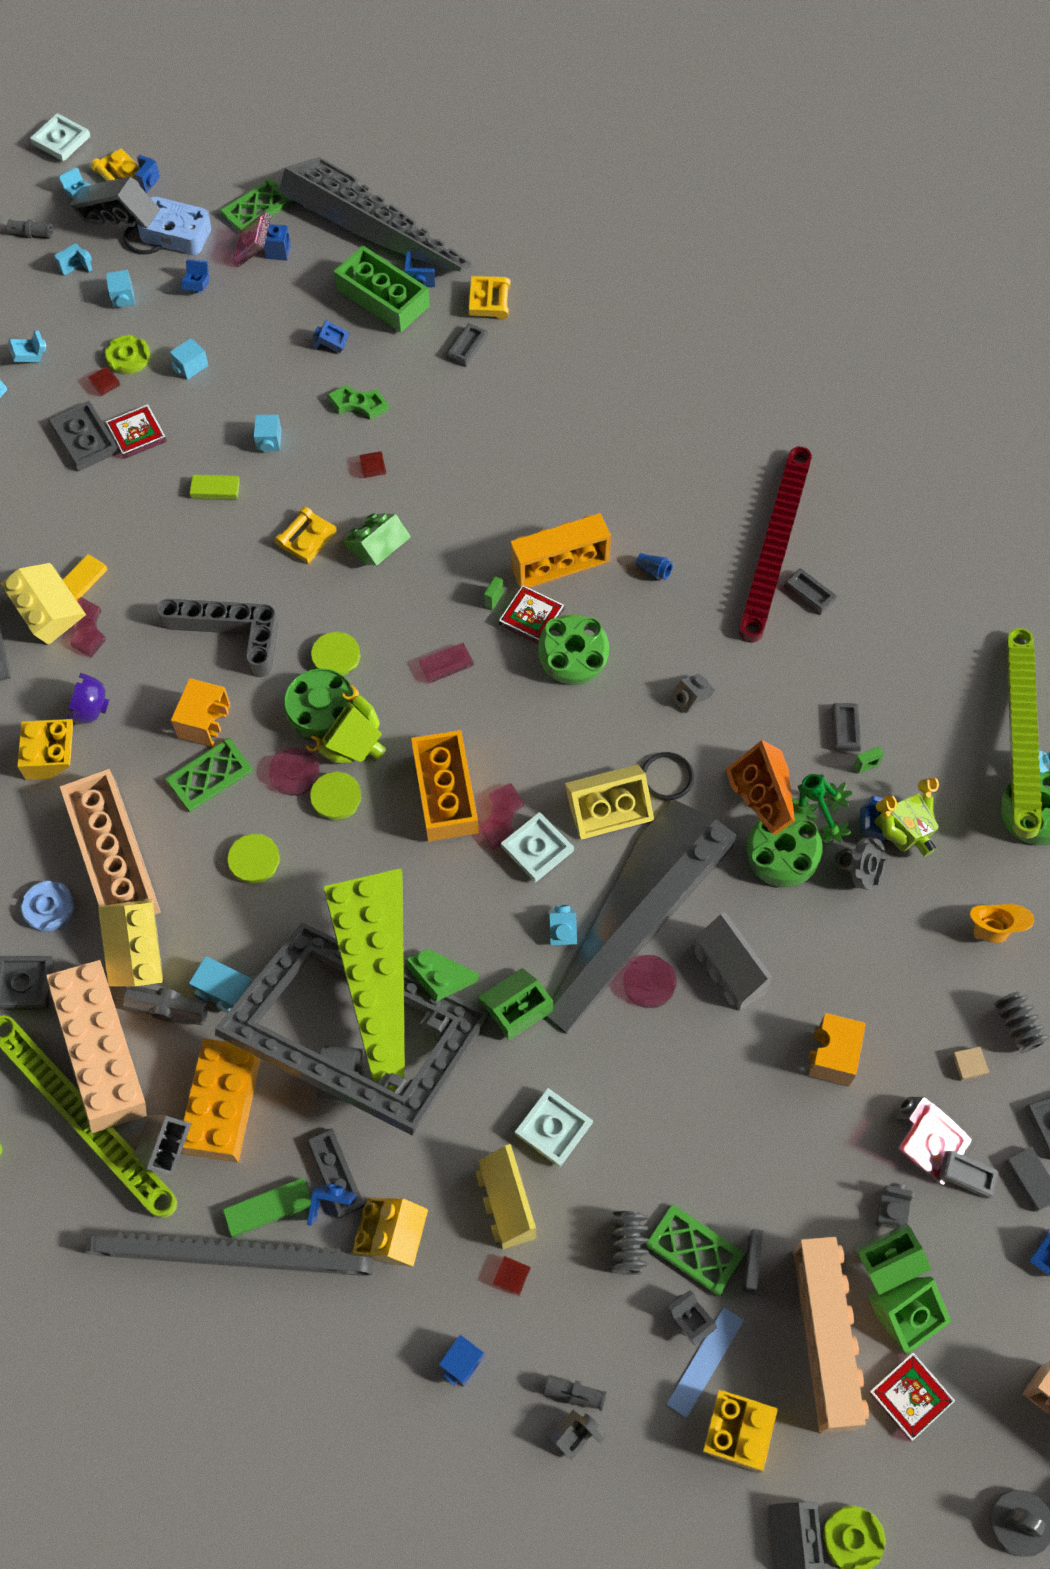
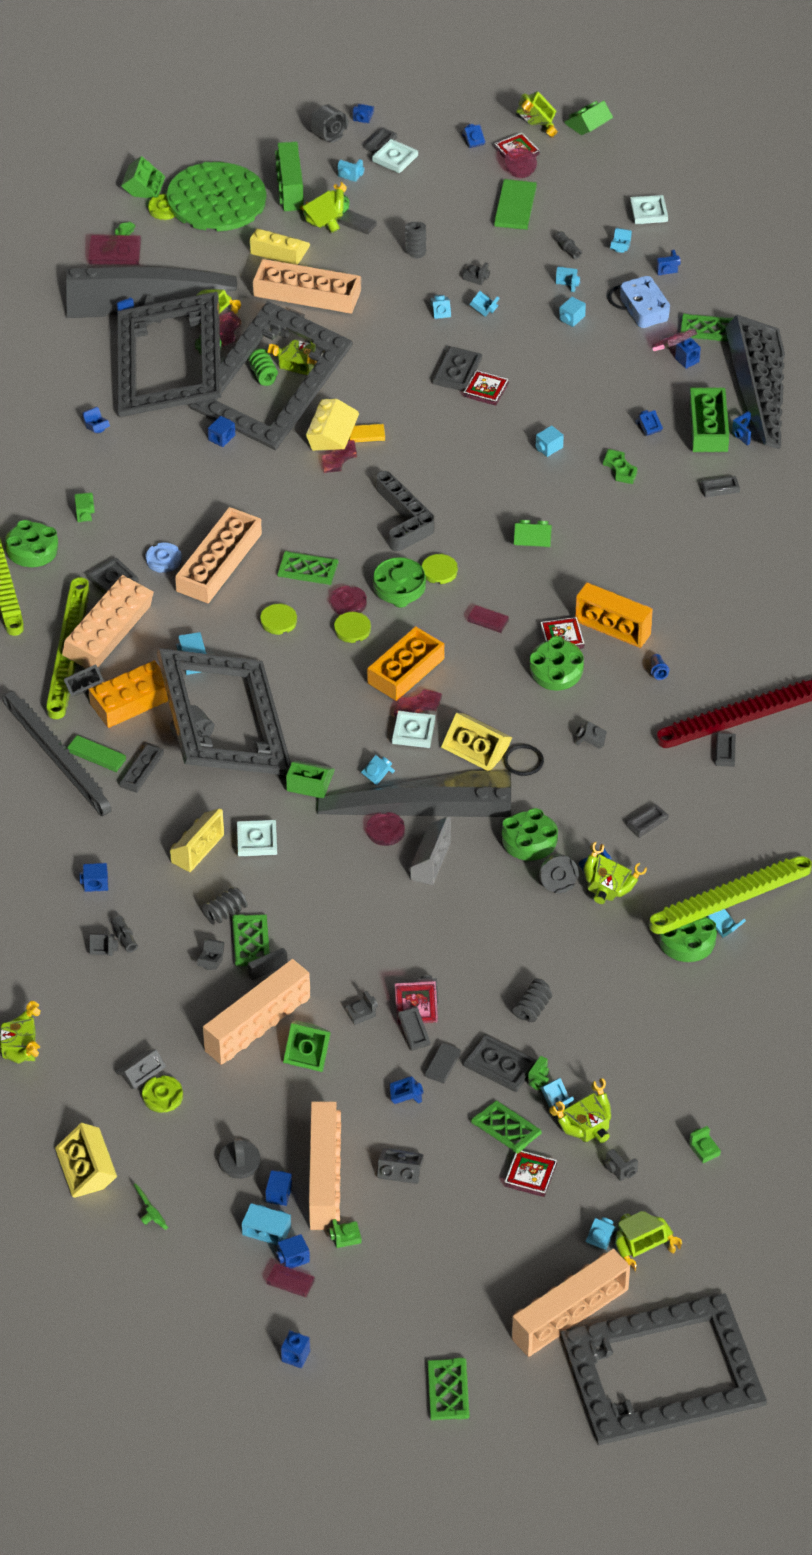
camera: 50 degrees right, 15 degrees down
(44, 748) = (245, 488): yellow slope -> none
(88, 700) = (292, 484): dark purple cylinder -> none
(104, 381) = (503, 351): clear red tile -> none
(116, 202) = (623, 264): dark grey wedge -> none
(118, 162) = (662, 249): yellow plate -> none
(127, 354) = (533, 348): lime tile -> none
(131, 943) = (176, 598): light yellow slope -> none
(166, 1005) = (156, 634): dark grey piece -> none
(188, 359) = (559, 373): medium azure brick -> none
(196, 276) = (620, 338): blue bracket -> none
(198, 710) = (337, 533): light orange piece -> none
(214, 487) = (488, 445): lime tile -> none
(310, 540) = (502, 509): yellow plate -> none
(330, 1192) = (122, 764): blue bracket -> none
(352, 733) = (394, 603): lime torso -> none
(370, 944) = (270, 685): lime wing -> none
(372, 464) = (583, 501): clear red tile -> none
(390, 1231) = (134, 806): yellow slope -> none
(439, 974) = (294, 736): bright green wing -> none
(481, 296) = (763, 468): yellow plate -> none
(493, 593) = (555, 607): bright green tile -> none
(512, 1275) = (160, 873): clear red tile -> none
(704, 1363) = (195, 981): light blue sticker -> none
(740, 1431) = (170, 1009): yellow slope -> none
(764, 784) = (563, 795): orange wedge -> none
(814, 788) = (574, 815): plant -> none
(841, 1051) = (426, 926): light orange piece -> none
(868, 760) = (632, 839): bright green tile -> none
(893, 1258) = (326, 1011): bright green slope -> none
(911, 1396) = (262, 1076): tile -> none
(970, 1063) = (485, 997): tan tile -> none
(998, 921) = (585, 955): light orange piece -> none

